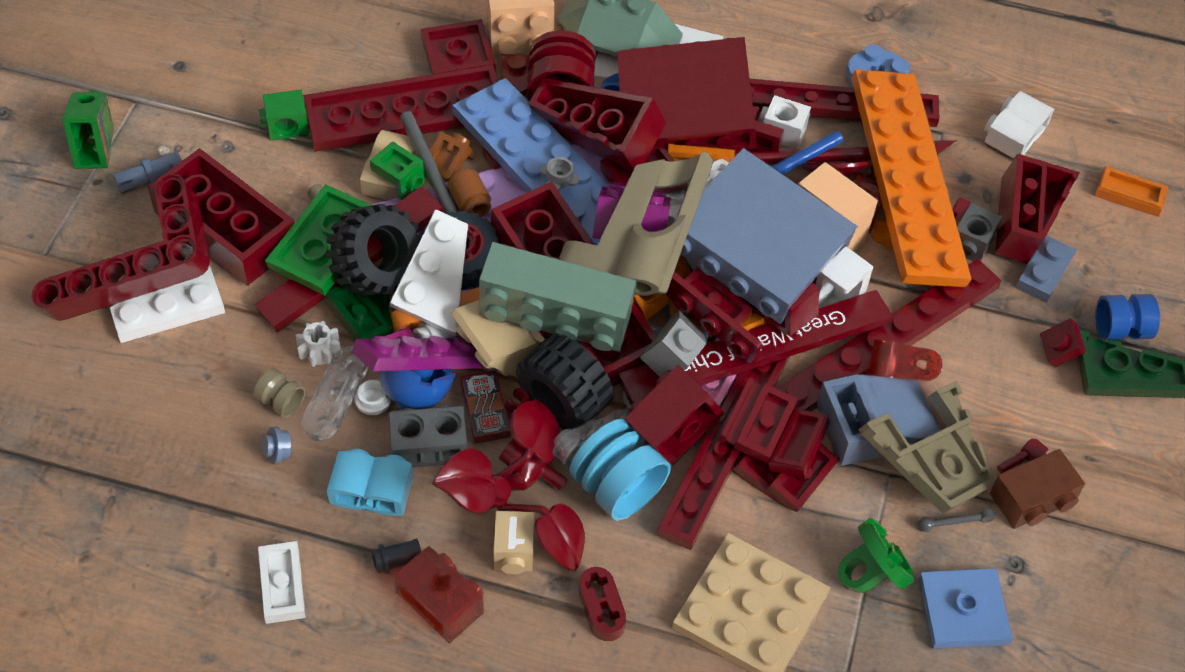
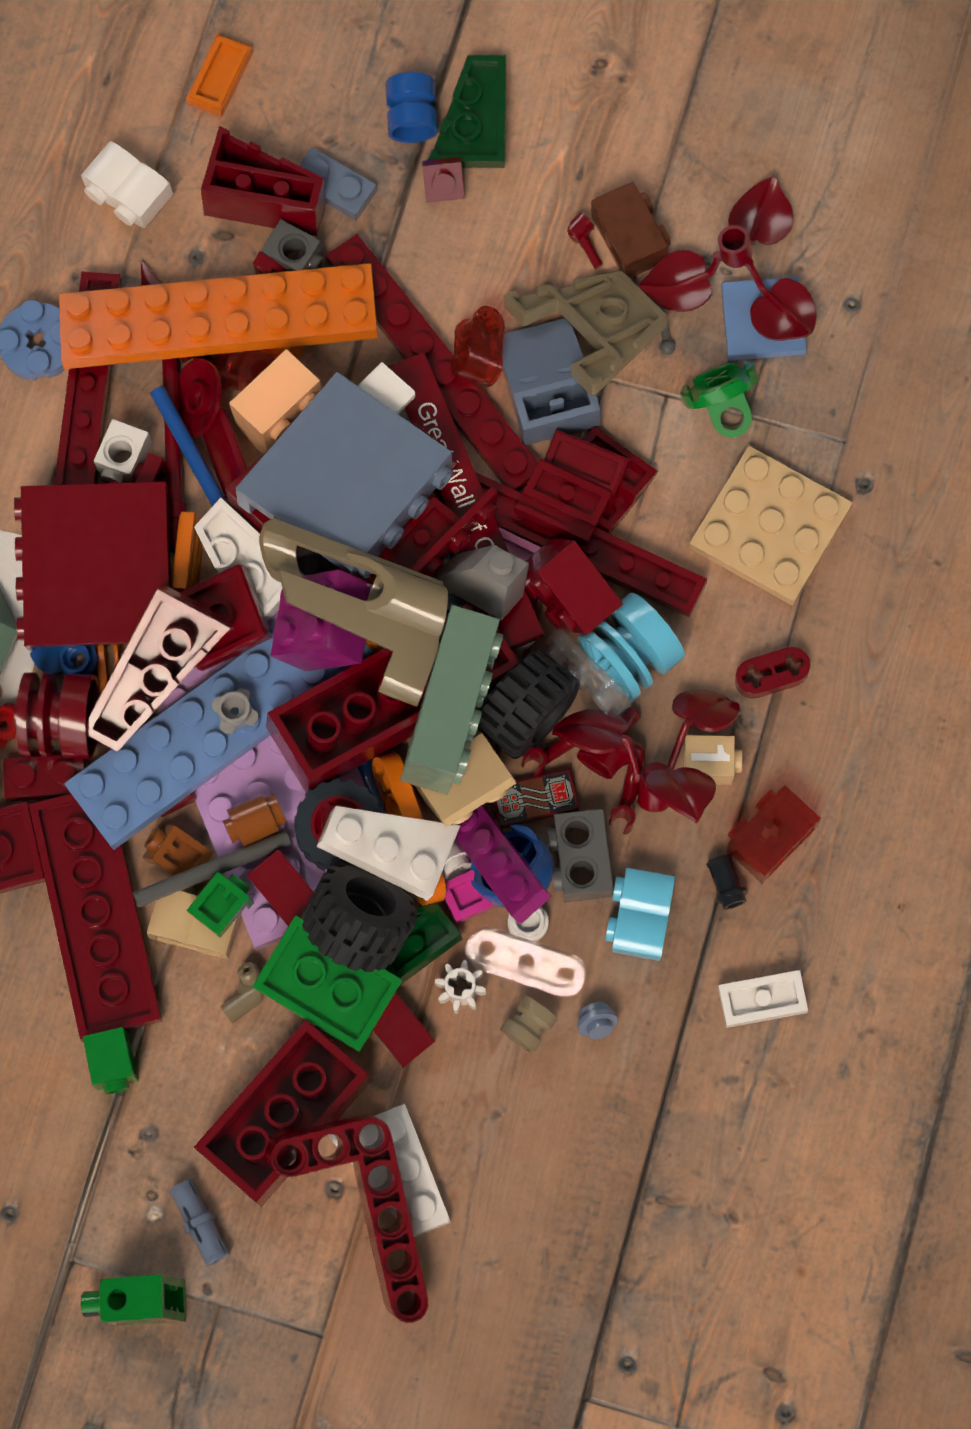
camera: 80 degrees left, 20 degrees up
(975, 620) = (759, 215): none -> dark red plant

